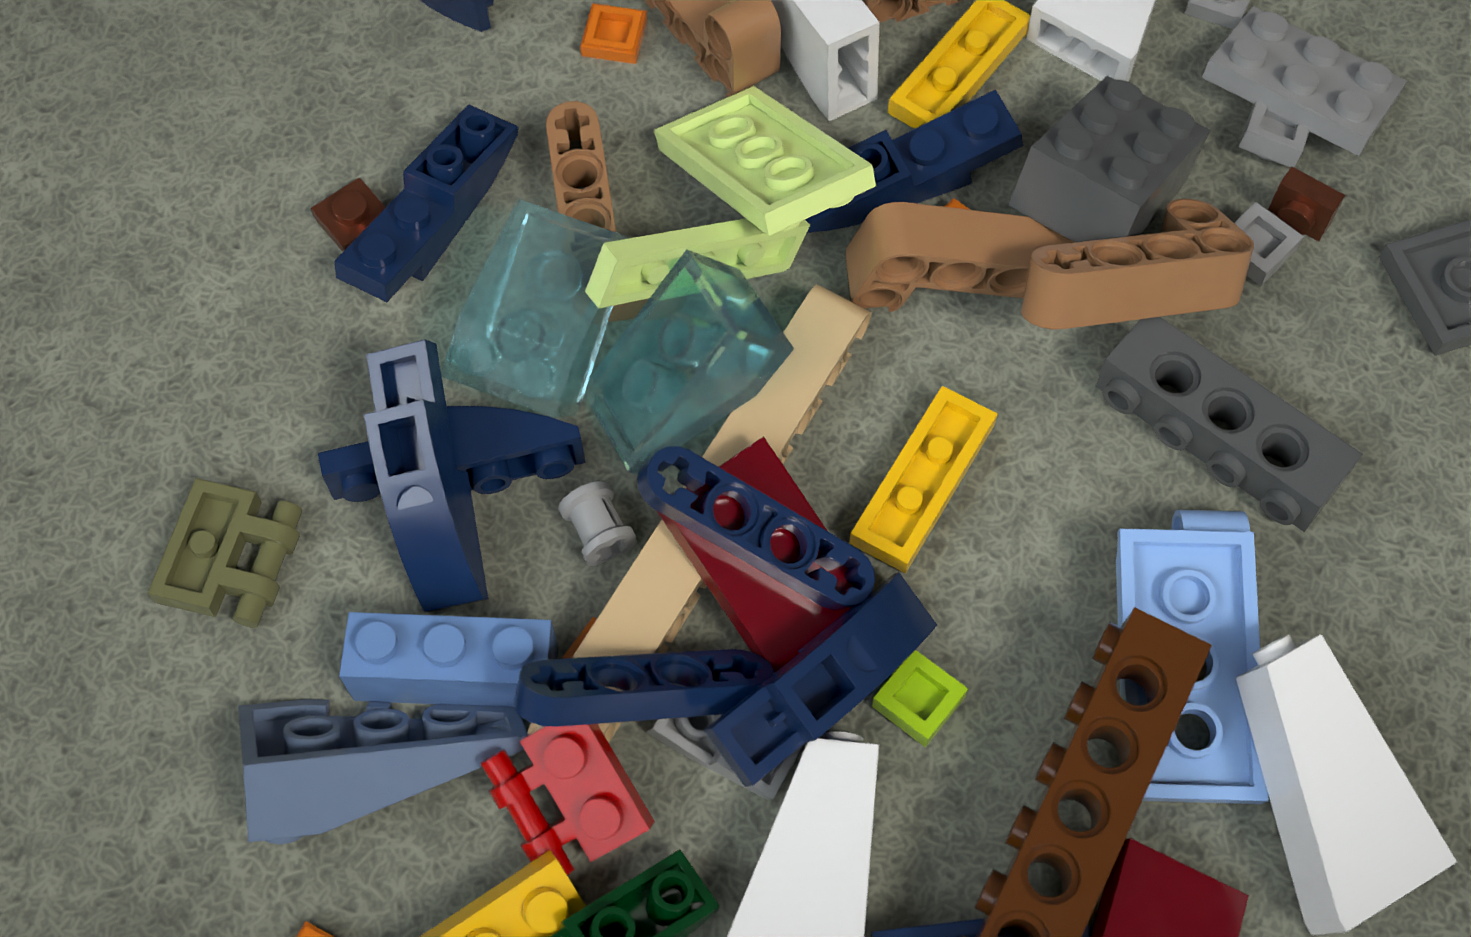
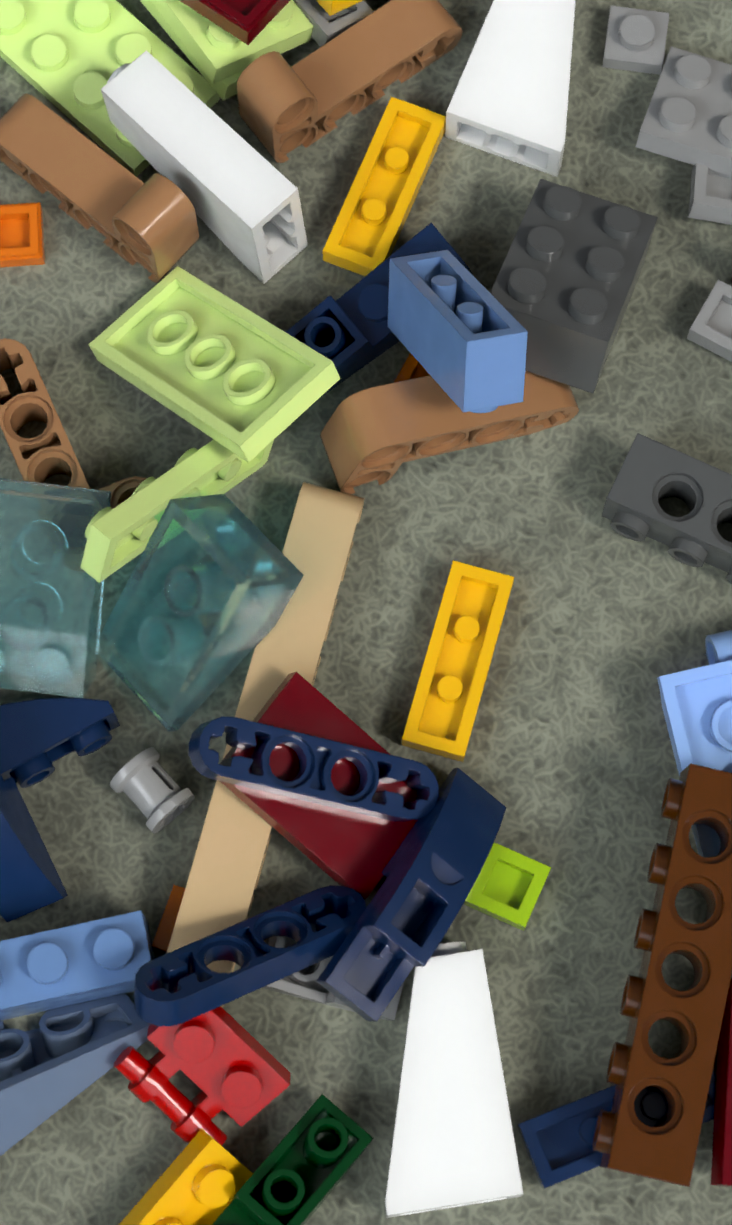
camera: 15 degrees left, 10 degrees up
(998, 170) = (457, 331): none -> medium blue brick
(1186, 268) = (665, 382): medium nougat beam -> none

